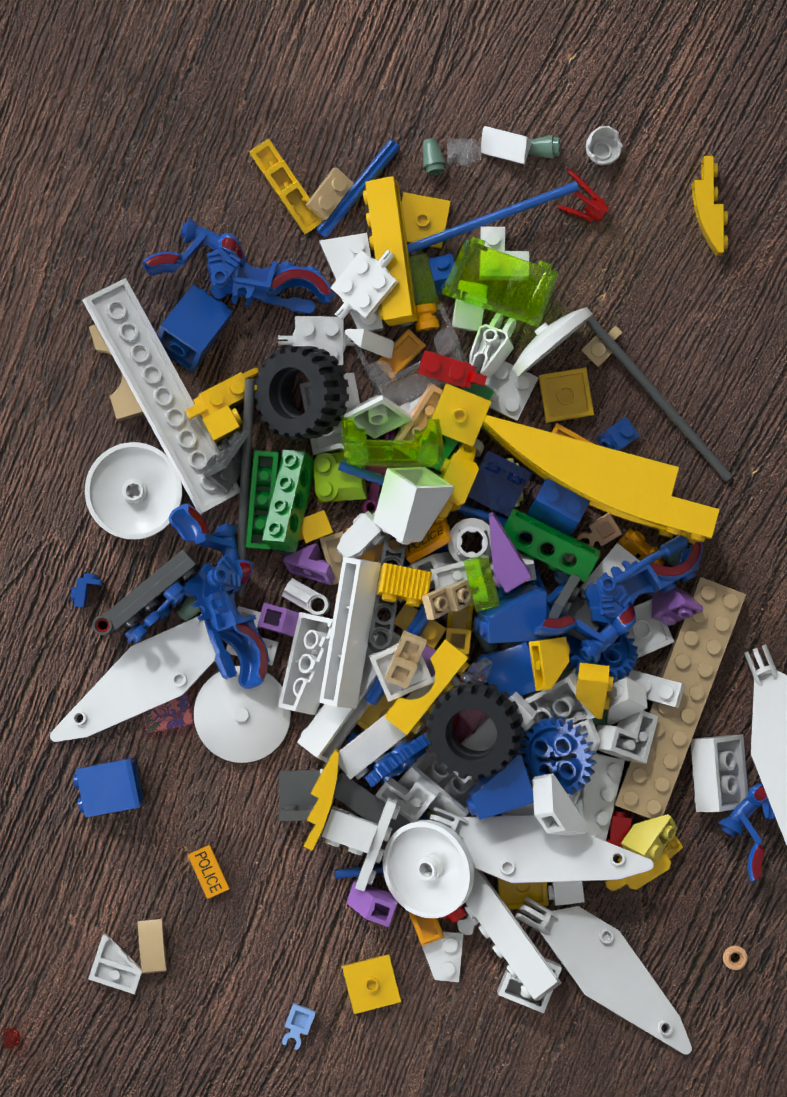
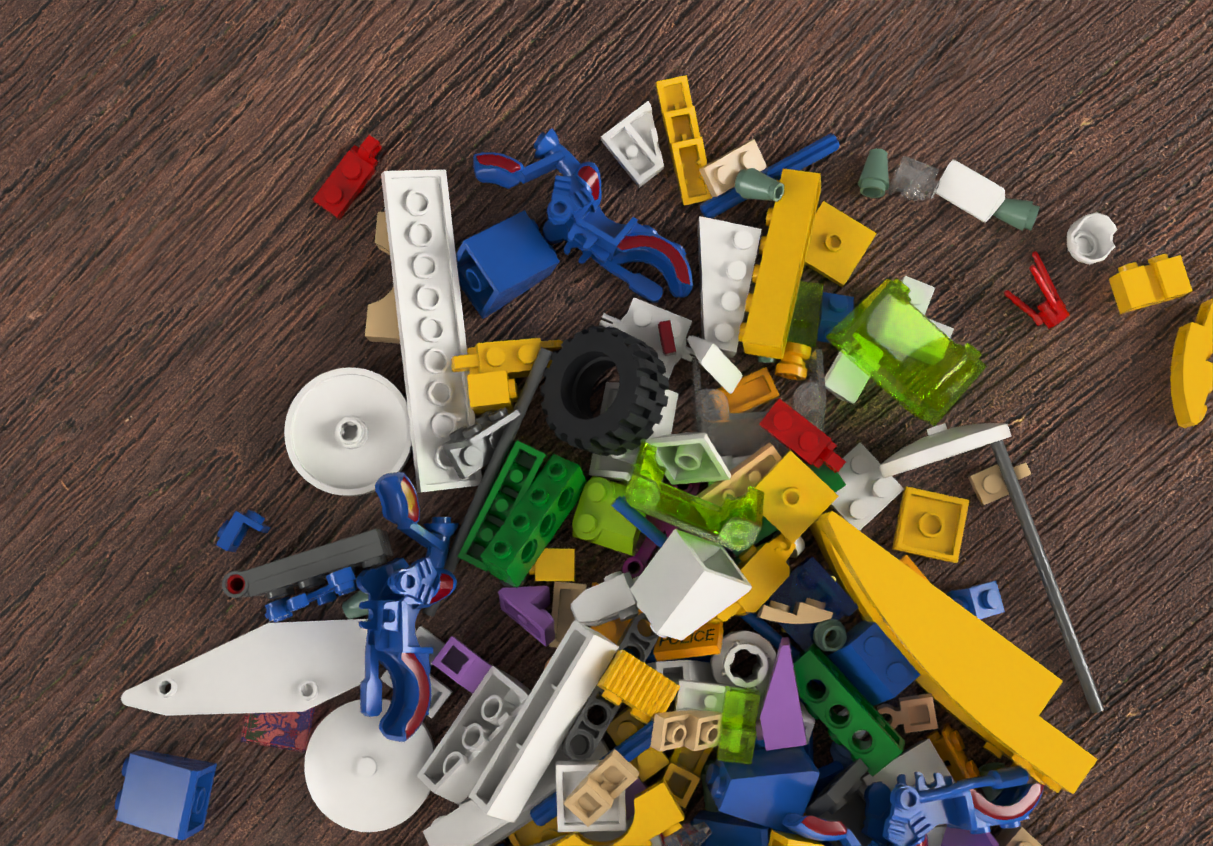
camera: 25 degrees right, 5 degrees down
(54, 309) = (348, 178): none -> red hinge
(253, 203) = (636, 145): none -> white wing
(304, 597) = (507, 647): white piece -> none
(330, 337) = (666, 338): none -> dark red tile
(351, 202) = (757, 185): none -> sand green cone
(364, 284) = (735, 288): white plate -> none
(492, 217) = (925, 270): blue piece -> none
(492, 345) = (864, 426): white hinge -> none
(498, 490) = (804, 613): none -> tan slope
(526, 502) = (835, 640): none -> sand green plate
(658, 162) = (1149, 284): none -> yellow brick

